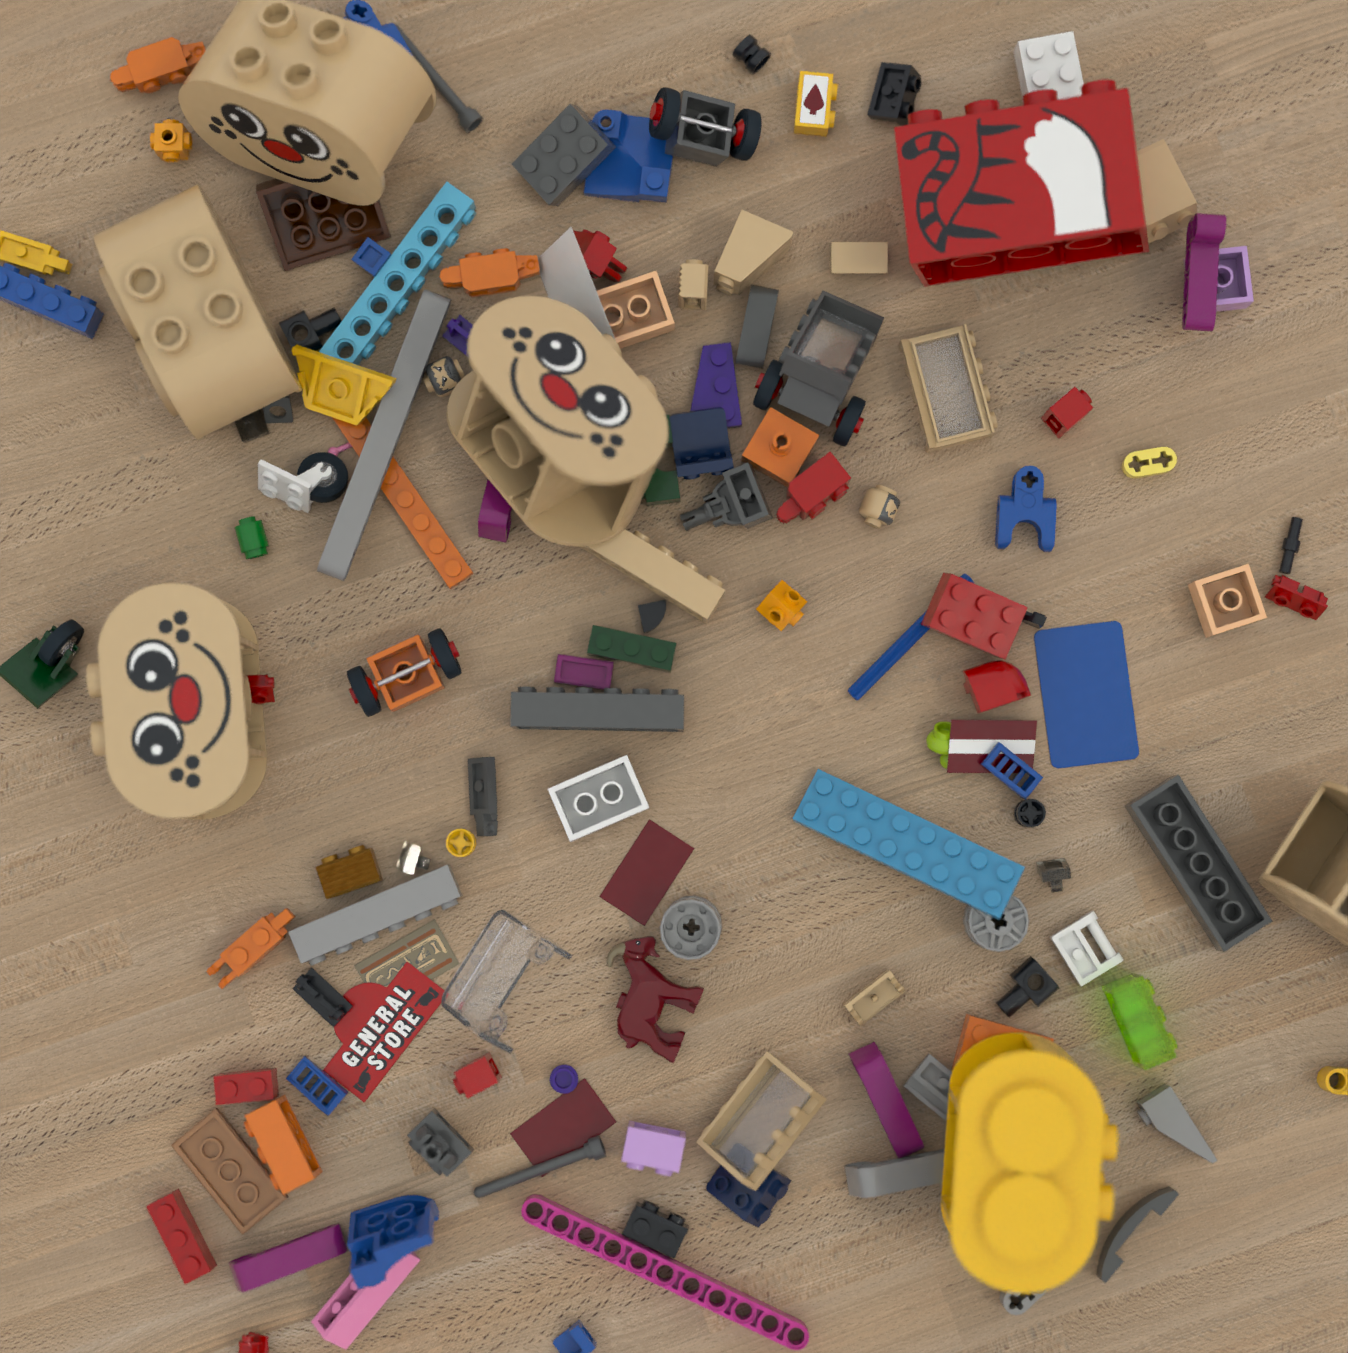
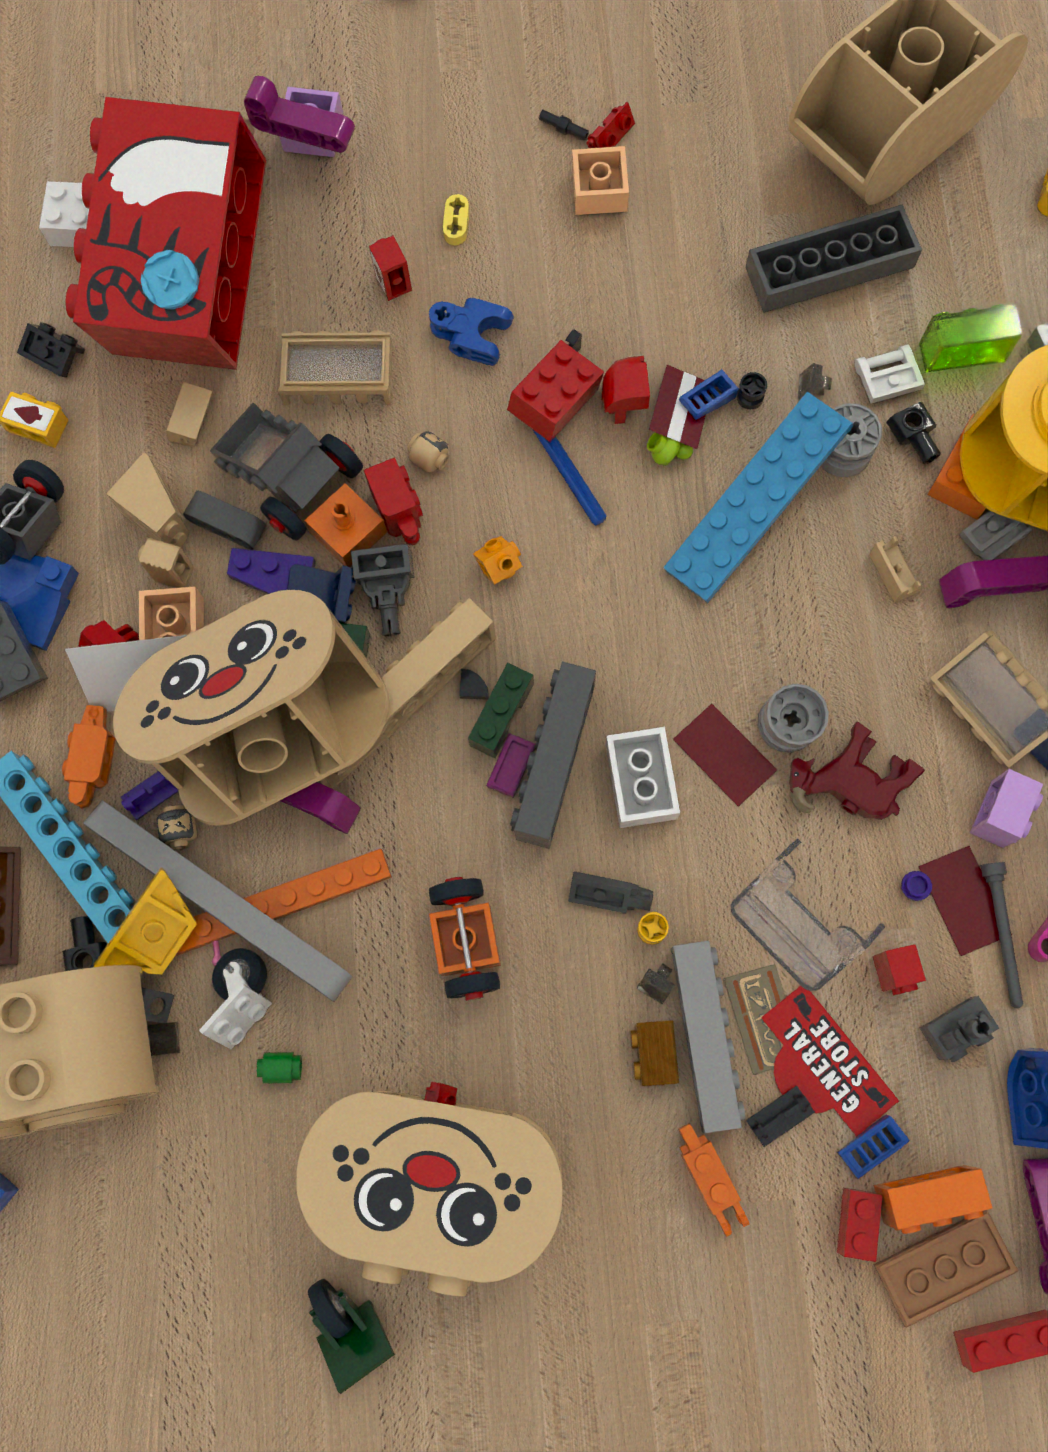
camera: 70 degrees left, 10 degrees down
(371, 257) = (31, 866): blue panel -> none
(957, 210) = (169, 279): none -> medium azure tile
(1086, 694) = (652, 322): blue sticker -> none

